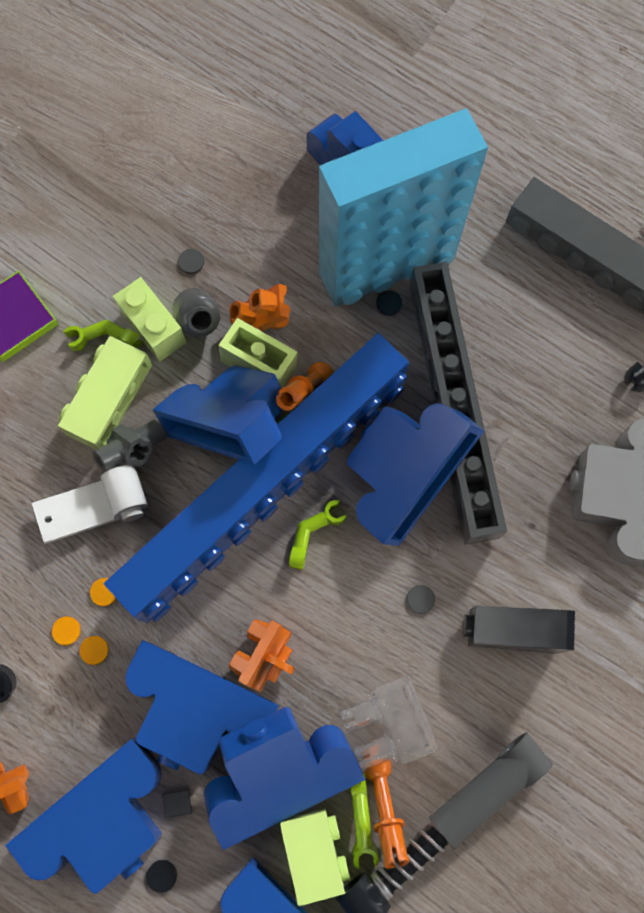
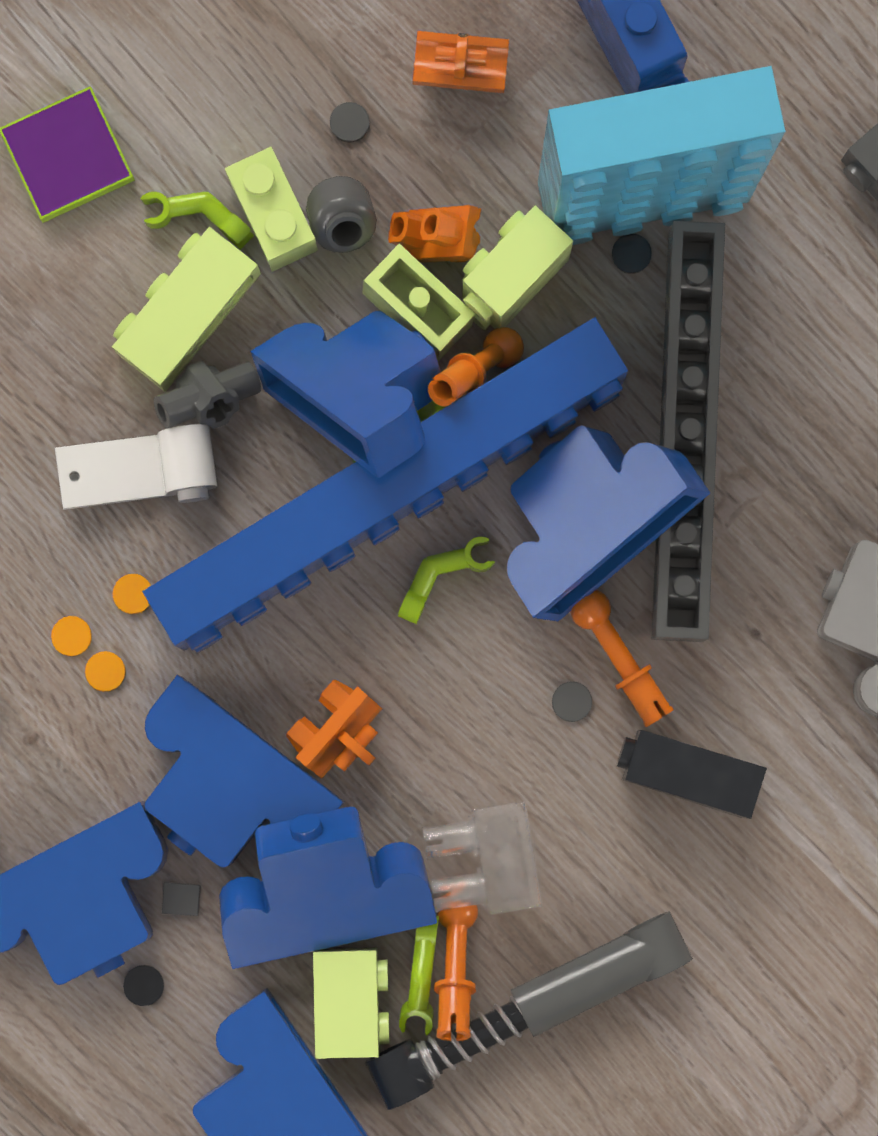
camera: 15 degrees right, 10 degrees up
(253, 206) = (460, 61): none -> orange hips
(318, 318) = (517, 268): none -> yellowish green brick
(462, 575) = (637, 683): none -> orange pin

